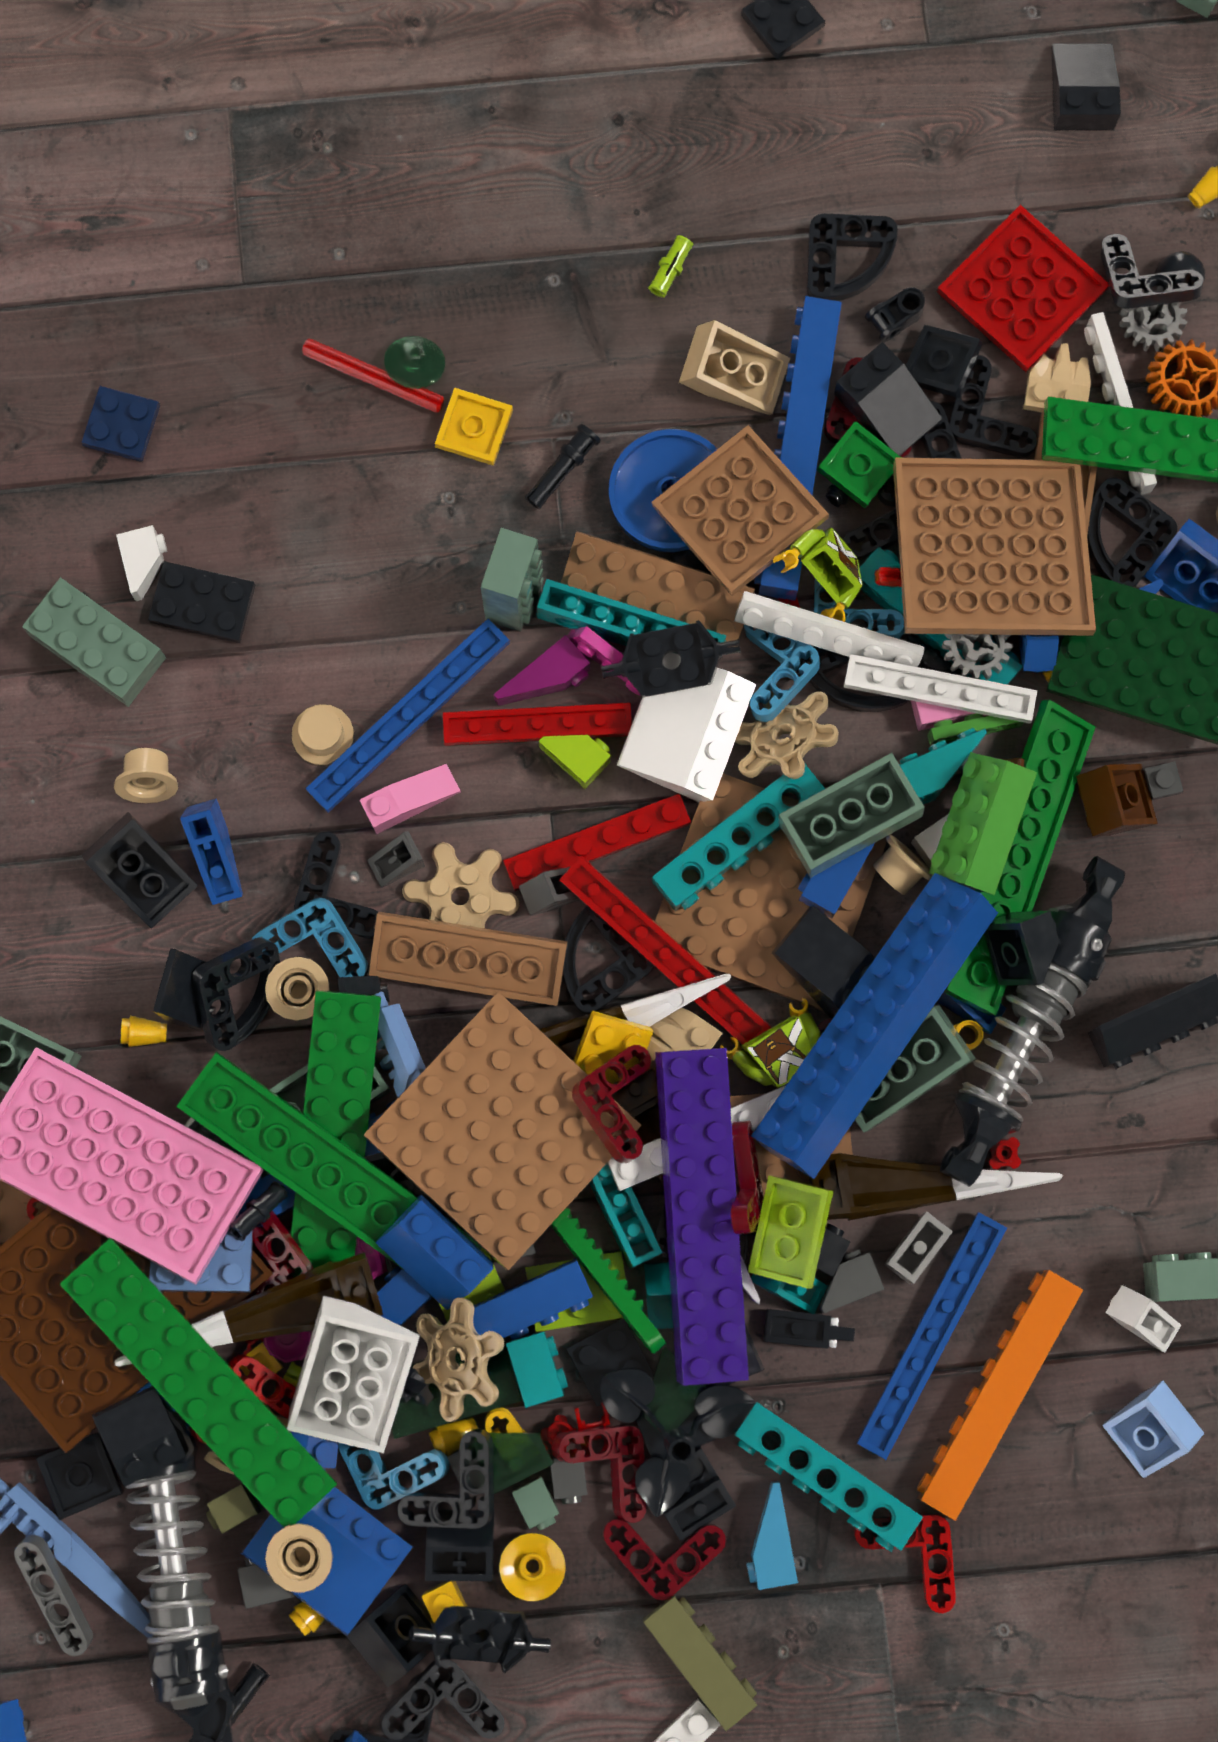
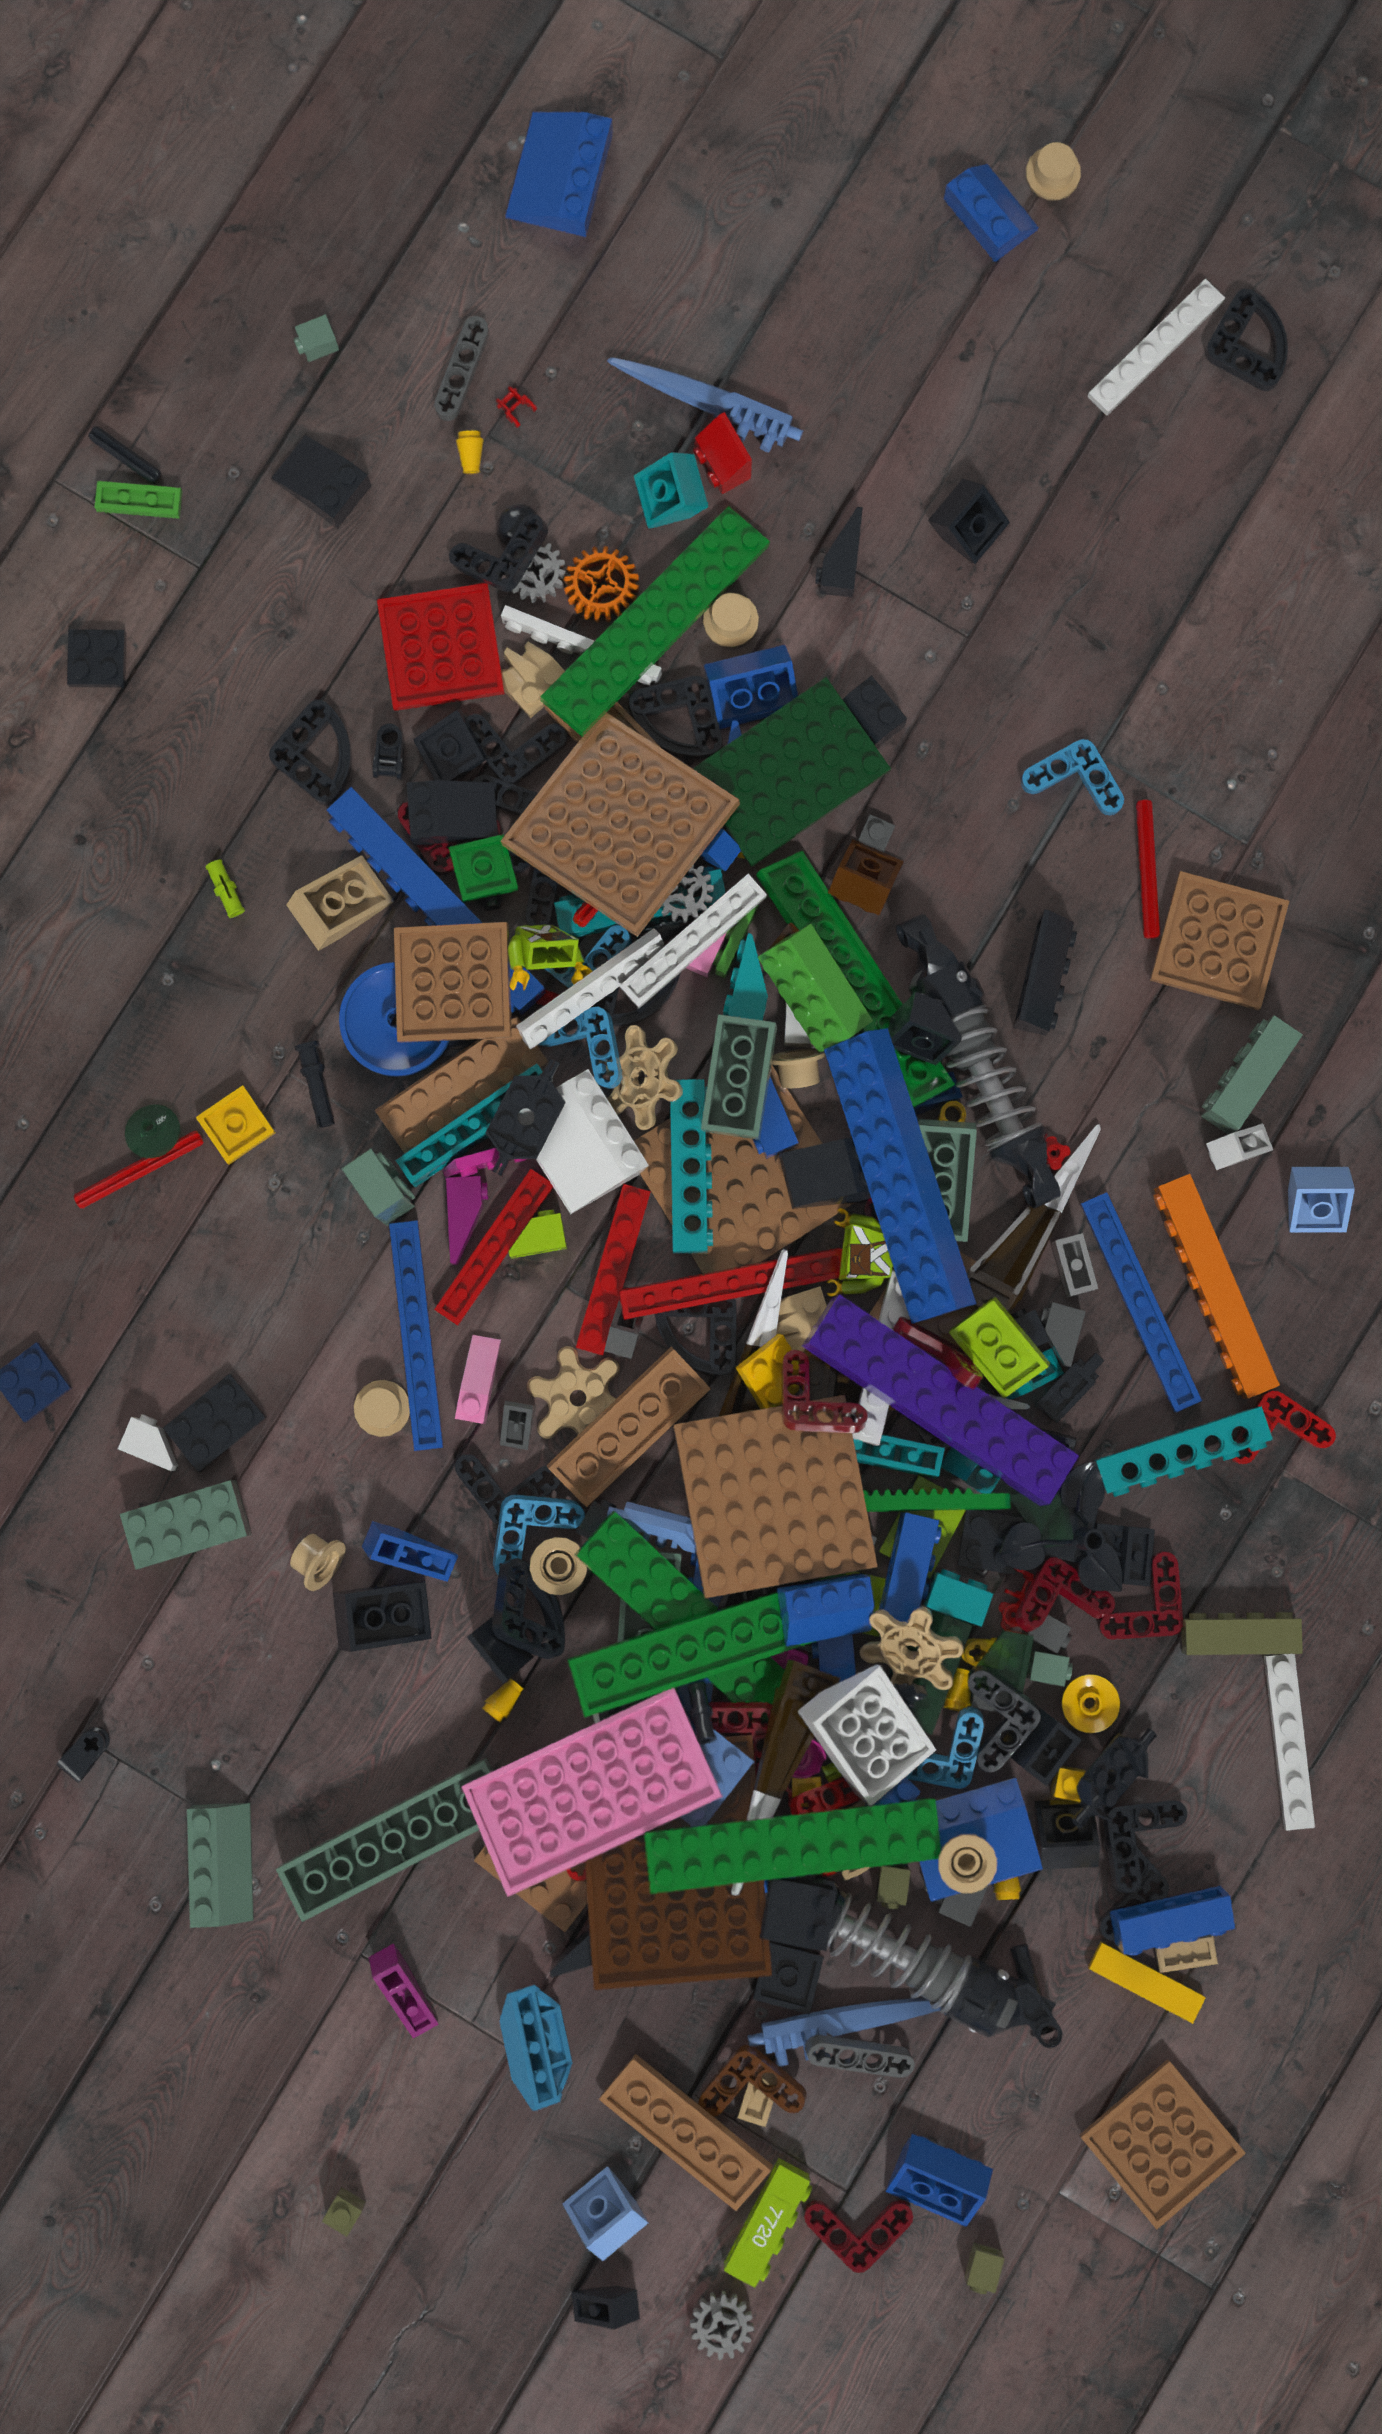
camera: 50 degrees left, 5 degrees up
(772, 1550) = (1202, 1526): dark azure slope -> none

